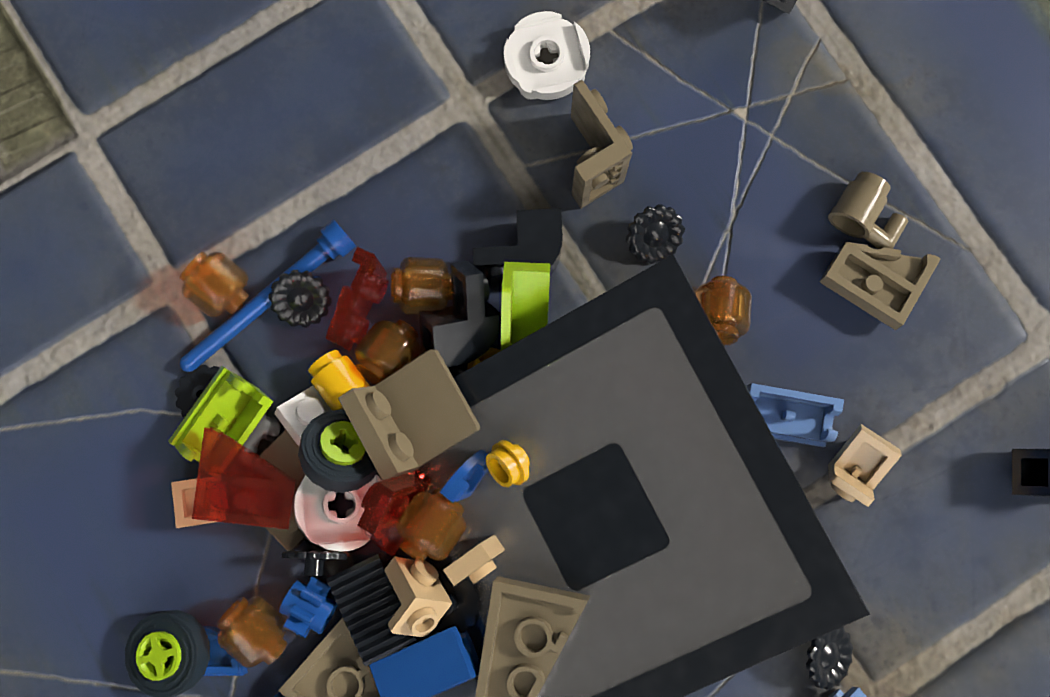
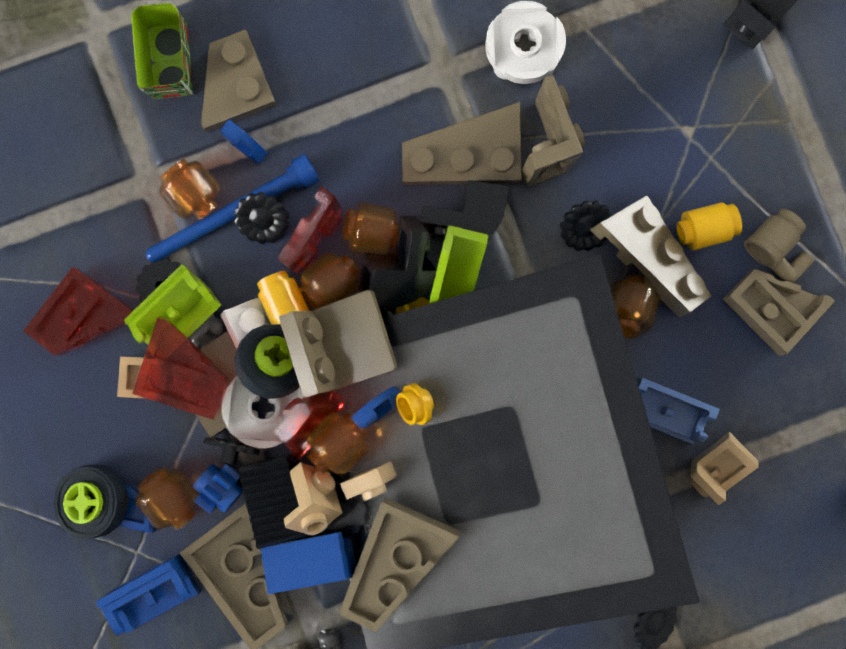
camera: 10 degrees right, 5 degrees up
(114, 446) = (76, 314): none -> clear red wing
(151, 108) = (159, 18): none -> lime piece
(242, 162) = (234, 82): none -> dark tan wing
(264, 221) = (243, 142): none -> blue tile
(518, 177) = (473, 150): none -> dark tan wing
(730, 242) = (655, 252): none -> wing
(786, 206) = (709, 225): none -> yellow brick

